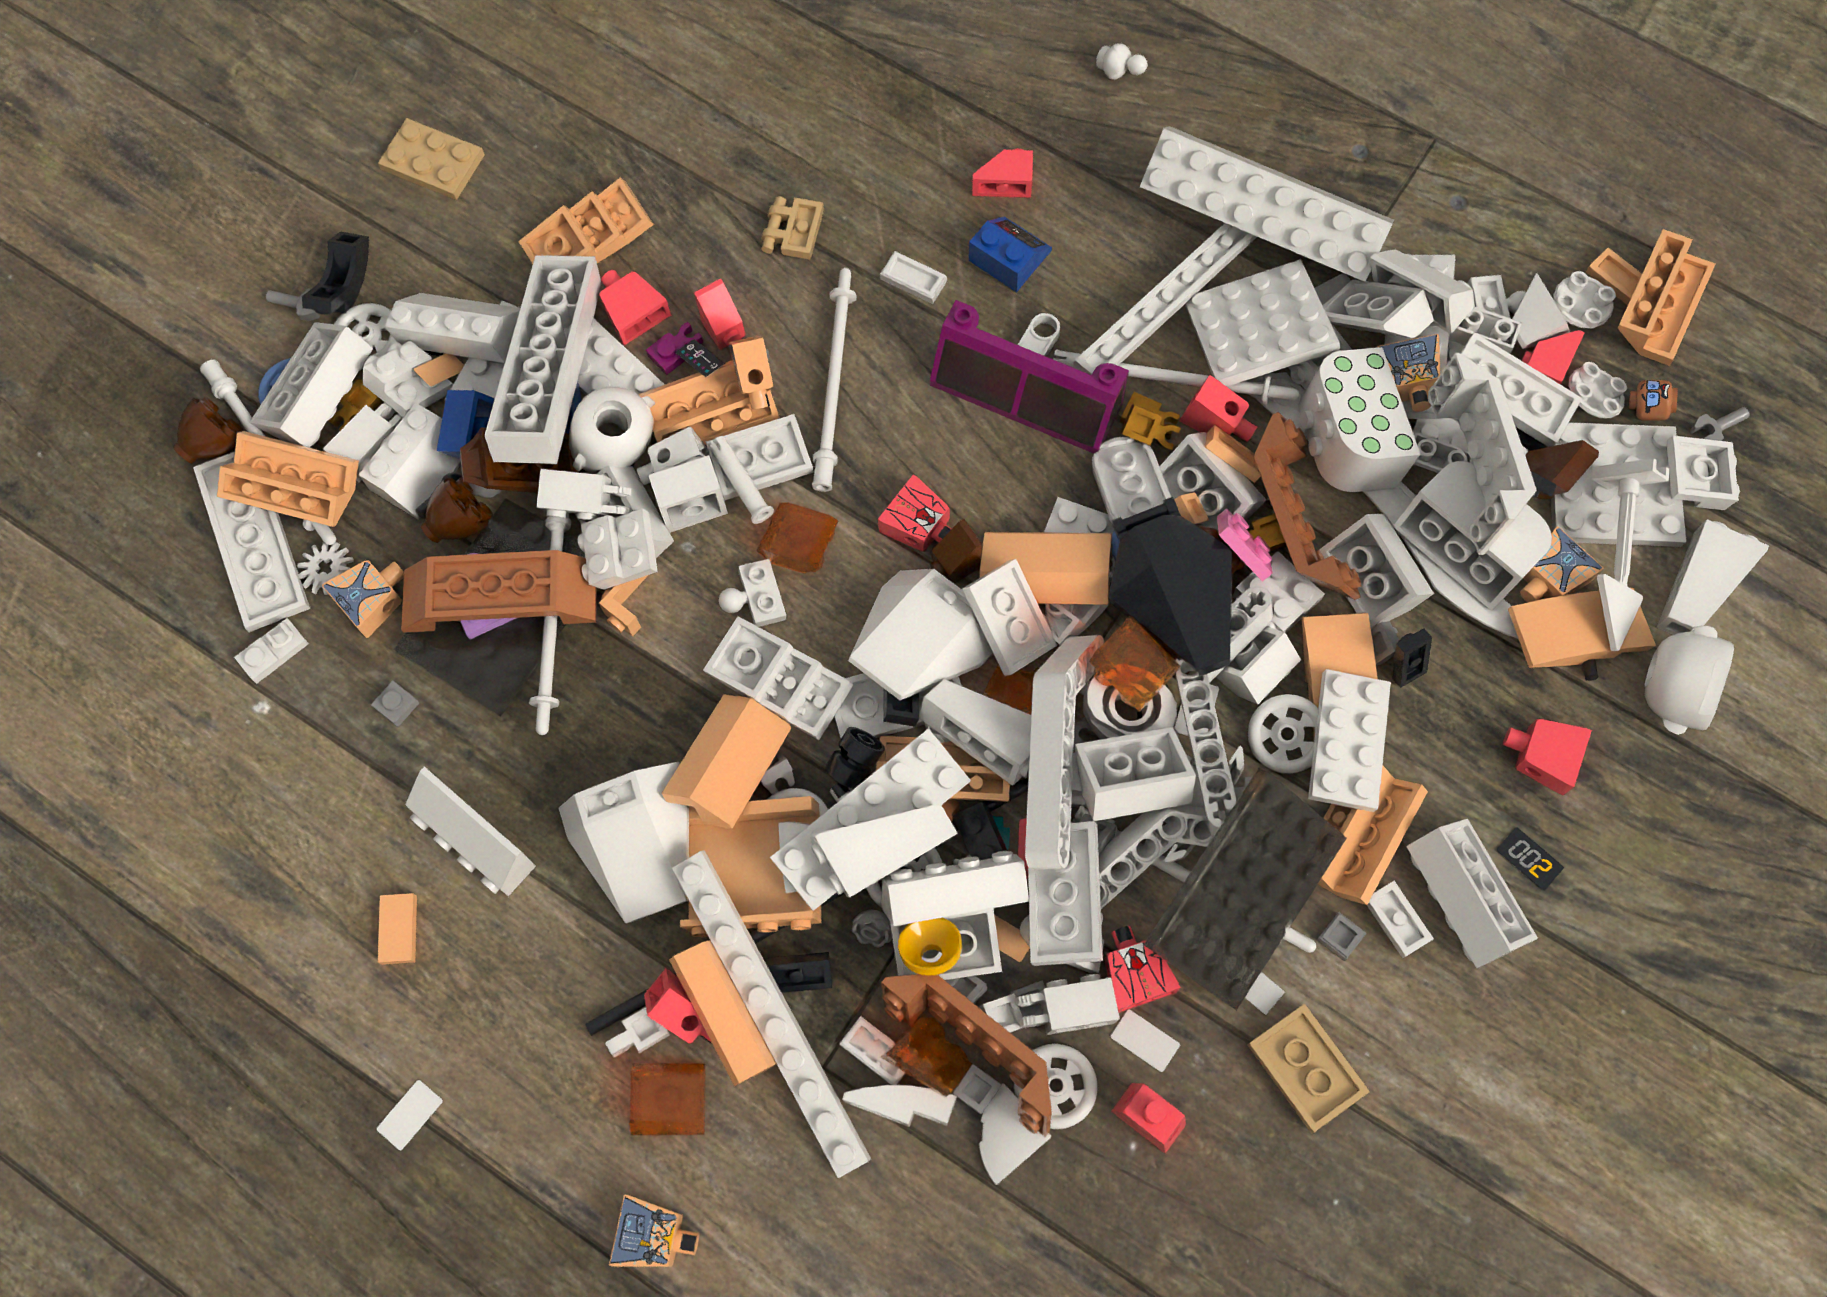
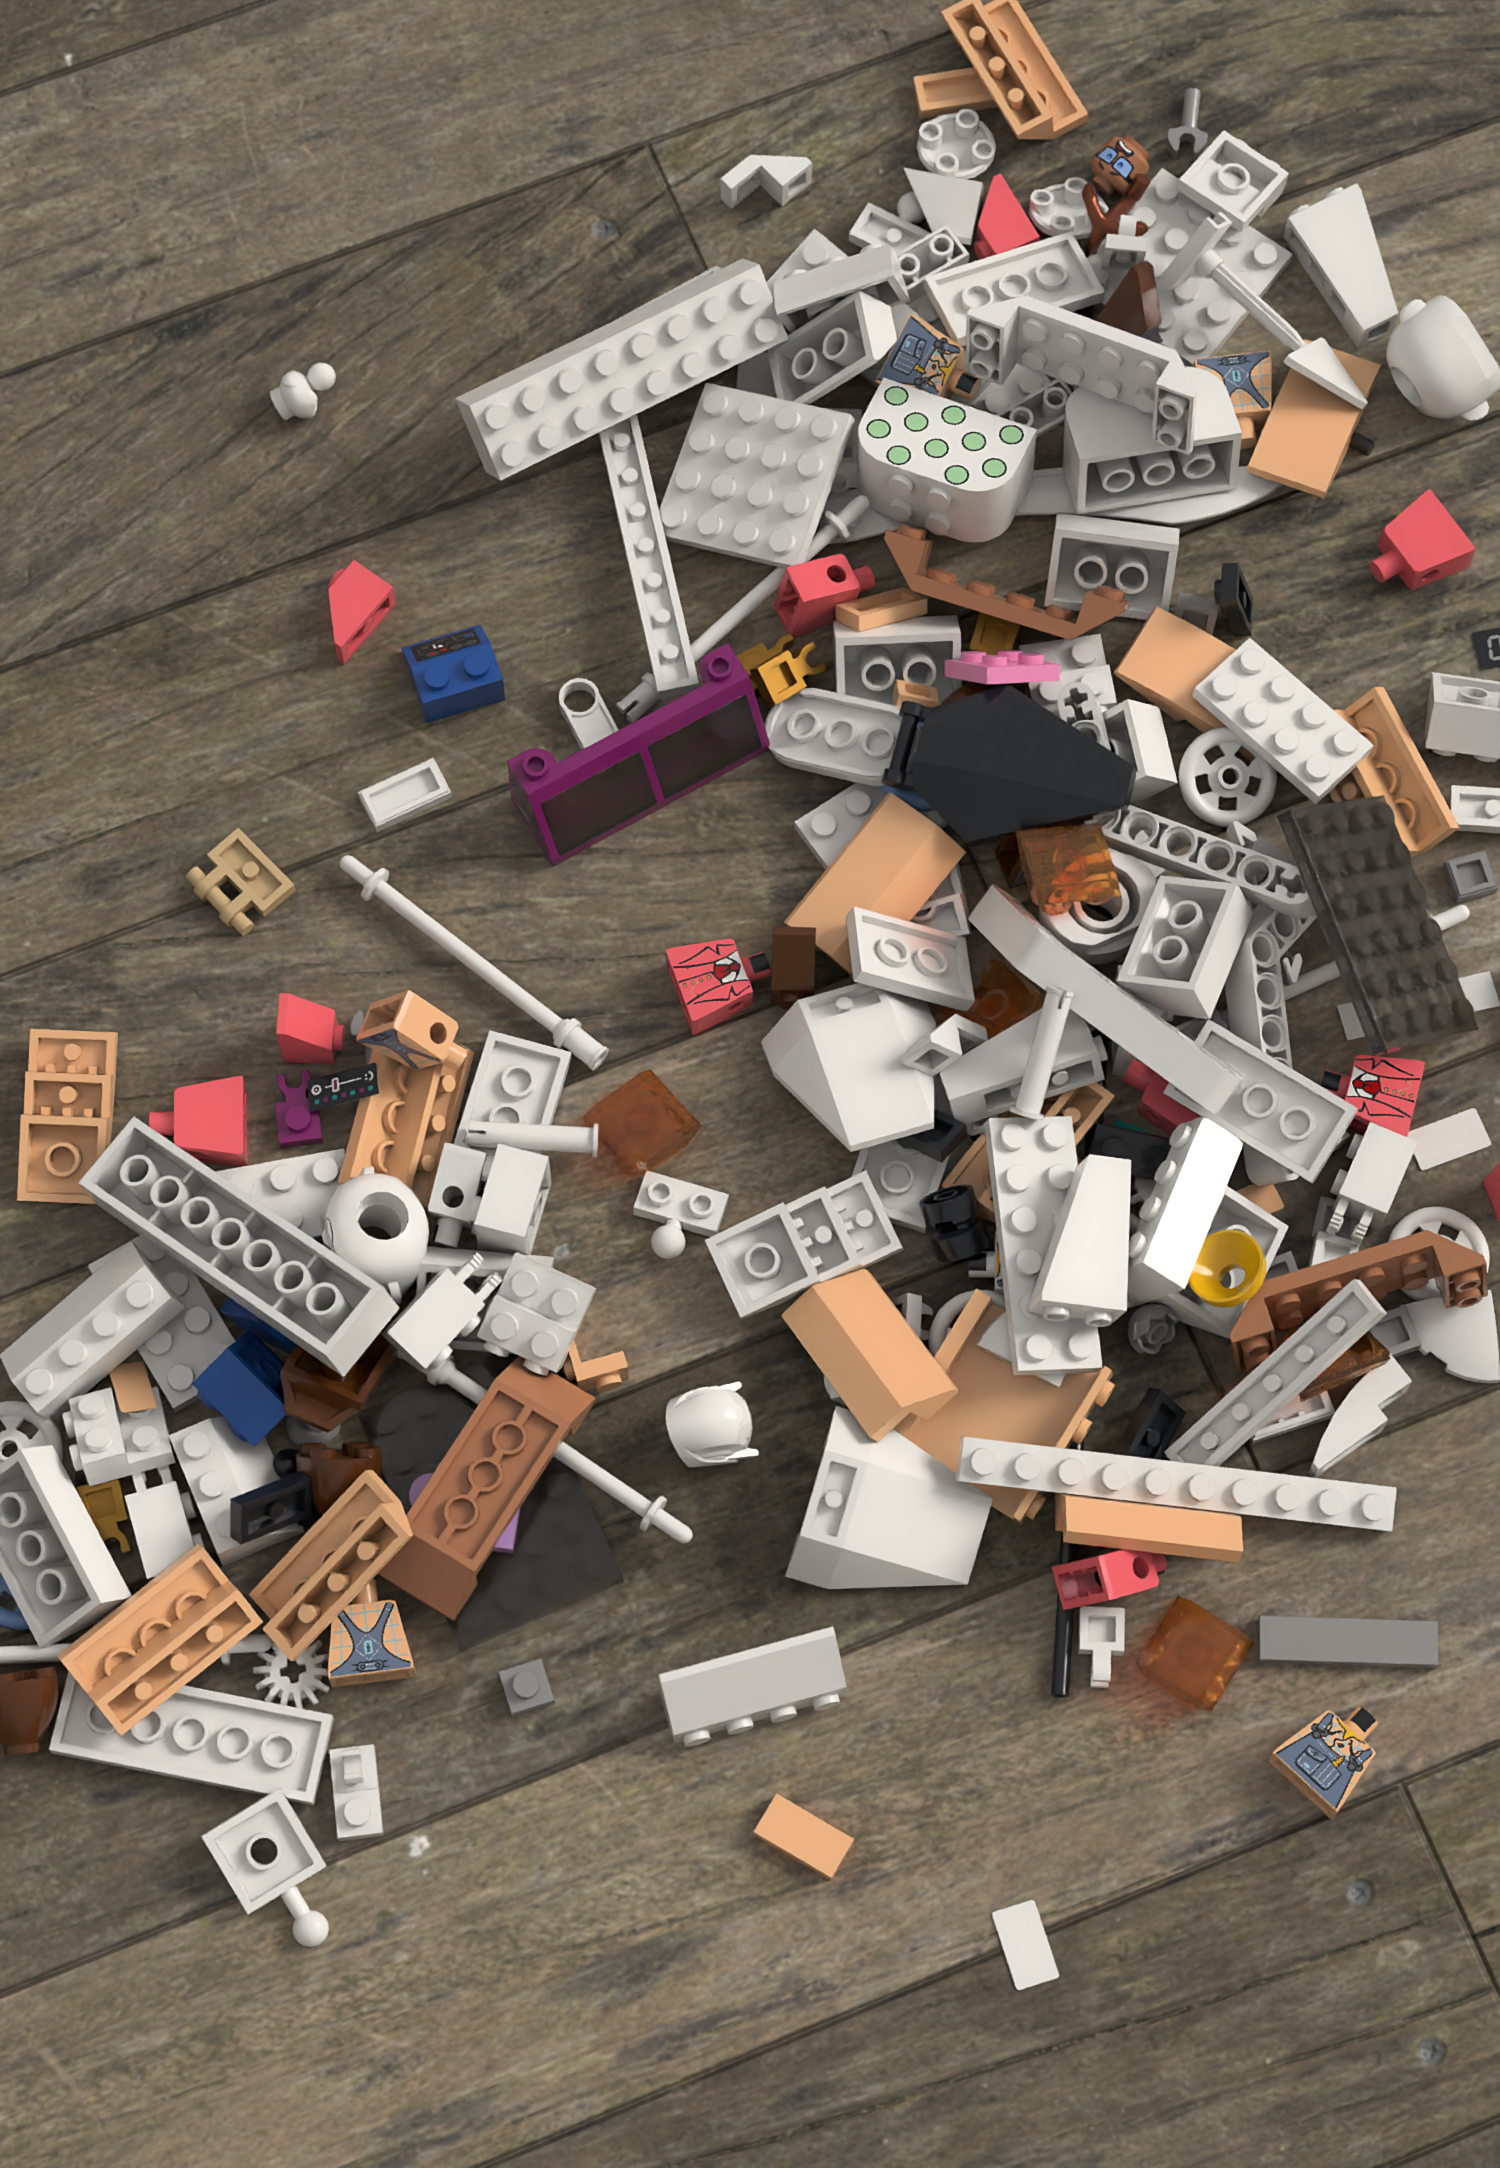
camera: 60 degrees left, 0 degrees up
(180, 631) = (260, 1883): none -> white plate
(390, 538) = (332, 1563): none -> light nougat slope
(400, 482) = (270, 1507): none -> black plate
(620, 697) = (710, 1426): none -> white helmet
(743, 1198) = (1347, 1641): none -> light grey tile
(881, 1030) = (1279, 1377): none -> white plate
(957, 668) = (944, 1045): none -> white slope
(989, 730) = (1043, 1053): none -> white pin
(1476, 217) = (779, 175): none -> white slope
(1594, 428) = (1124, 249): none -> white plate
(1609, 418) = (1108, 222): none -> copper piece

